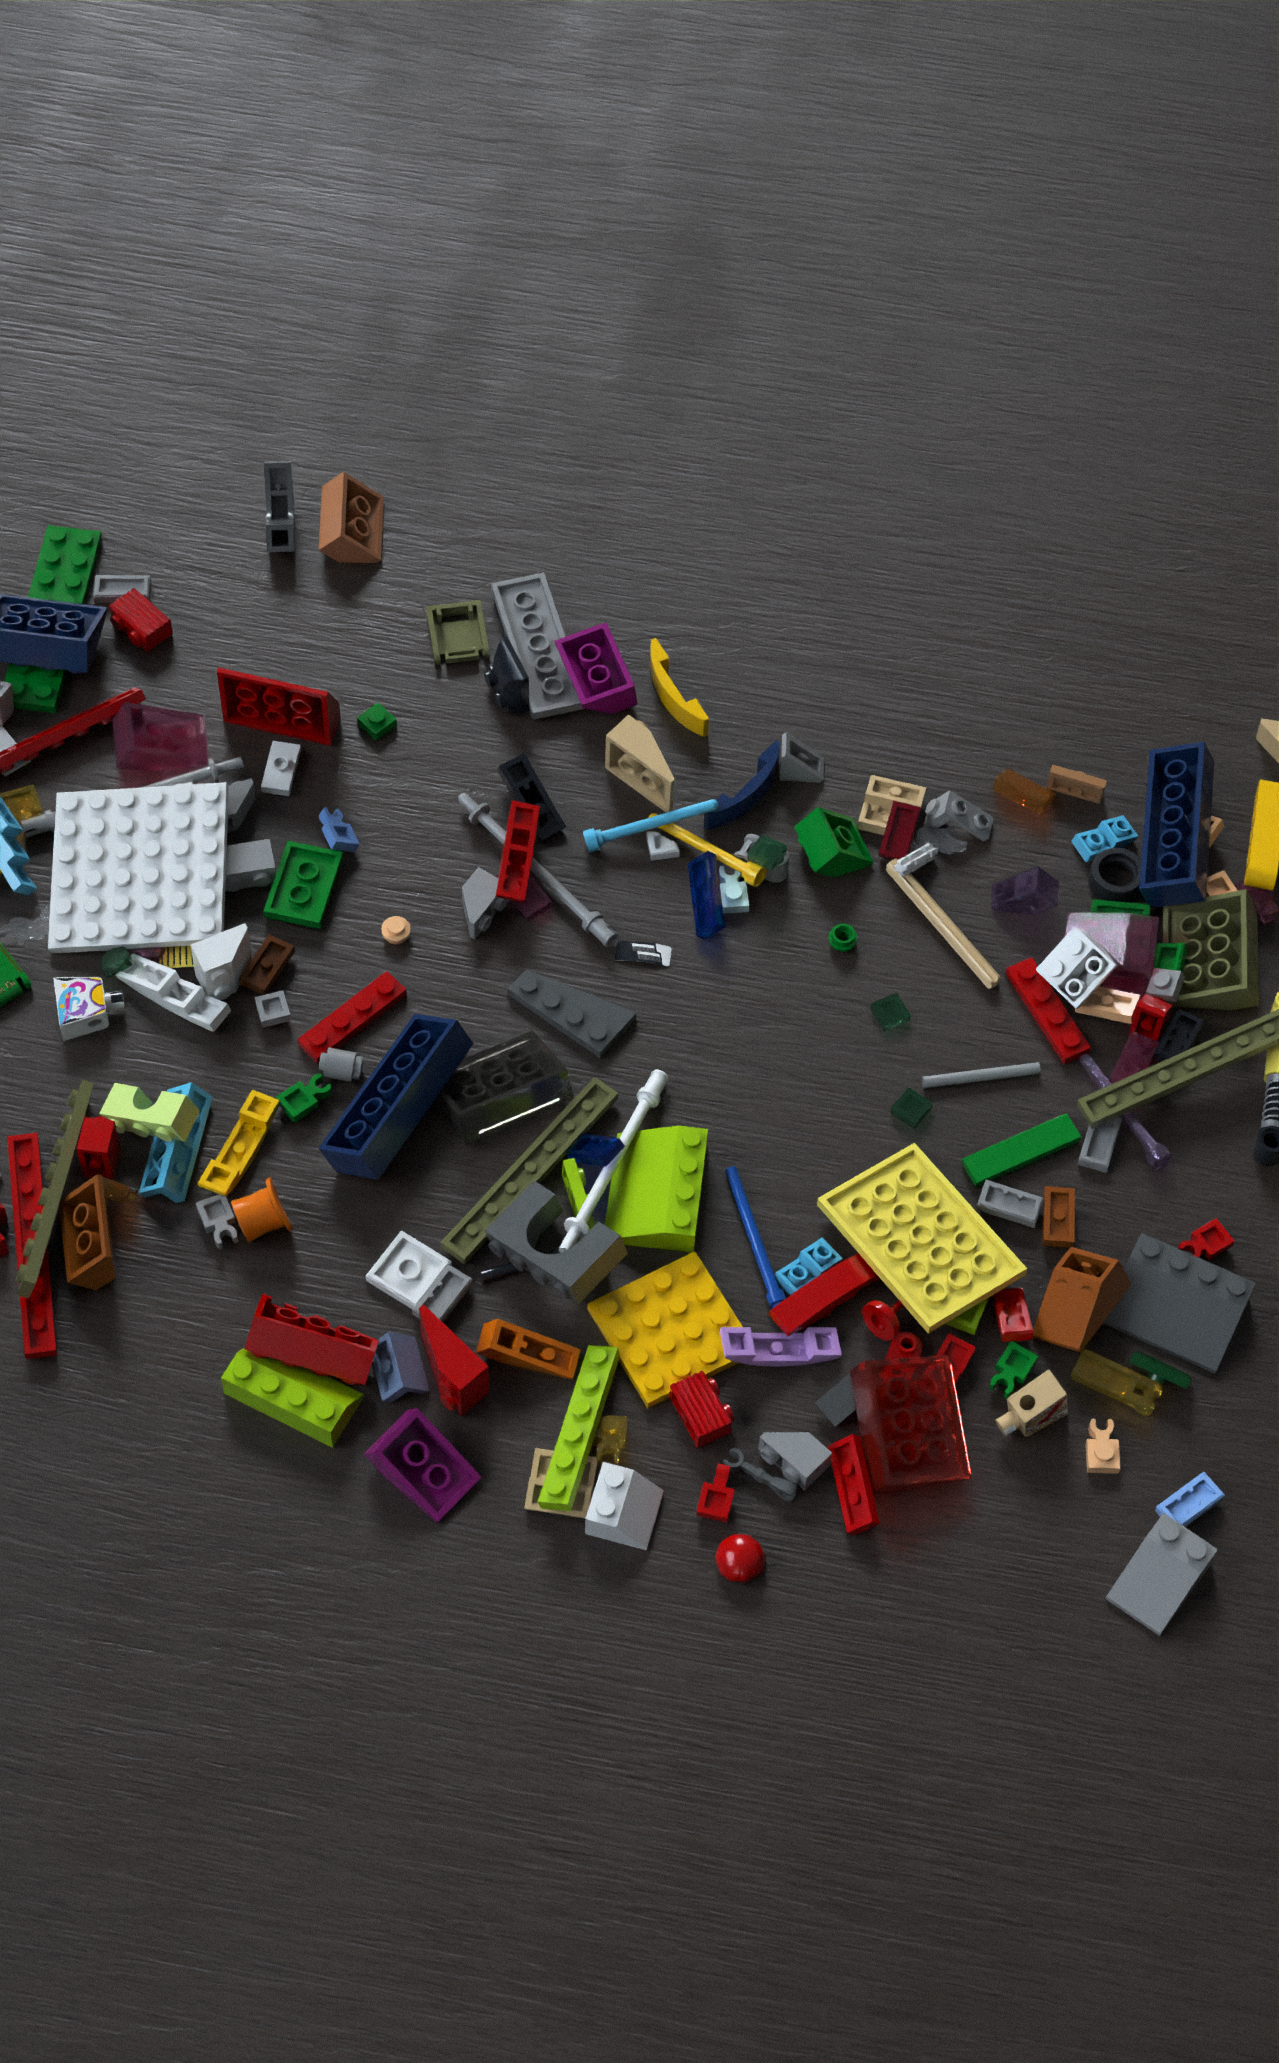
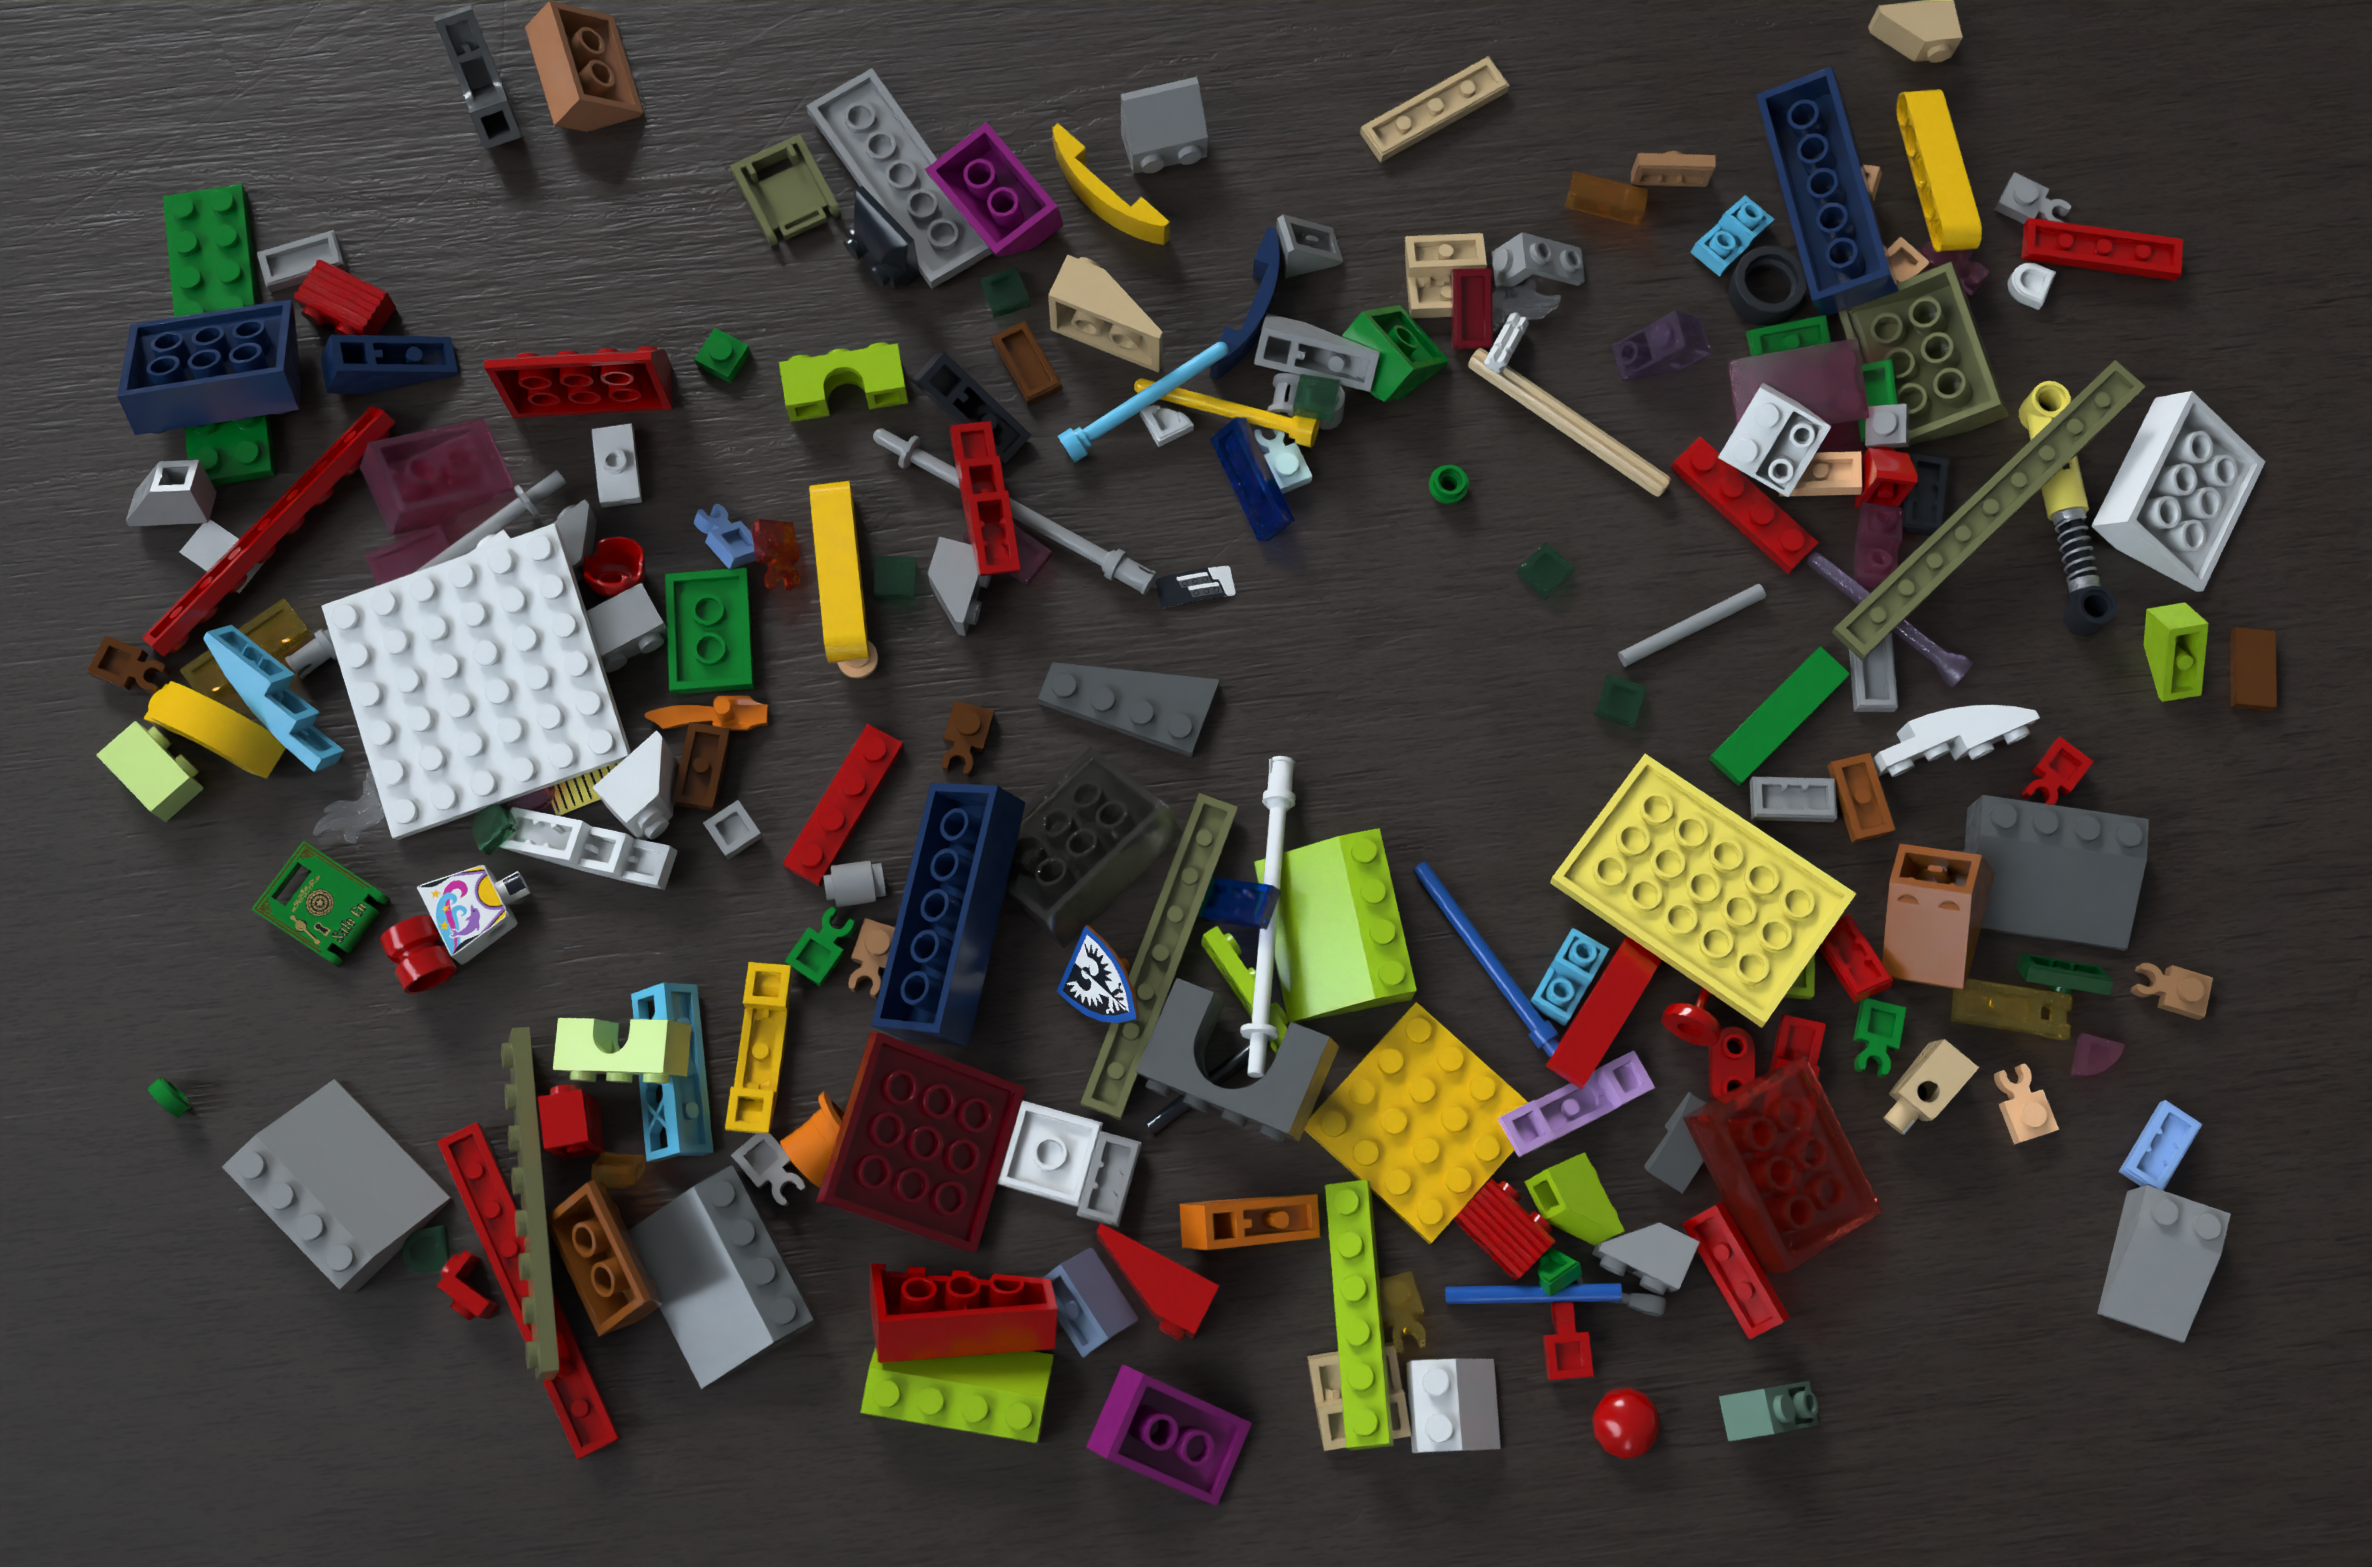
camera: 20 degrees left, 15 degrees up
(38, 1021) = (416, 949): none -> red wheel
(124, 780) = (407, 554): none -> clear pink tile
(151, 662) = (384, 362): none -> dark blue slope
(161, 1276) = (721, 1277): none -> dark grey slope
(256, 825) = (614, 566): none -> red hair
(302, 939) = (730, 712): none -> orange piece
(324, 1228) = (921, 1143): none -> dark red plate
(333, 1111) = (872, 952): none -> medium nougat plate
(368, 845) = (776, 546): none -> clear red plate
(403, 871) = (839, 572): none -> yellow beam
(430, 751) = (810, 380): none -> lime arch
(440, 888) = (895, 577): none -> clear green tile
(451, 996) = (966, 731): none -> reddish brown plate
(481, 1168) = (1099, 981): none -> shield
(580, 782) = (1026, 363): none -> reddish brown tile
(582, 735) = (1005, 292): none -> clear green tile
(705, 1455) = (1532, 1294): none -> blue bar
(727, 1444) = (1557, 1271): none -> green tile
(728, 659) = (1164, 126): none -> light grey slope
(755, 1402) = (1575, 1200): none -> lime slope
(771, 821) = (1312, 351): none -> light grey slope
(842, 1578) = (1769, 1411): none -> sand green slope
(923, 703) = (1434, 109): none -> tan tile
(1150, 1194) = (1955, 730): none -> white slope
(1166, 1432) = (2094, 1055): none -> clear pink tile
(1243, 1409) = (2178, 989): none -> medium nougat plate

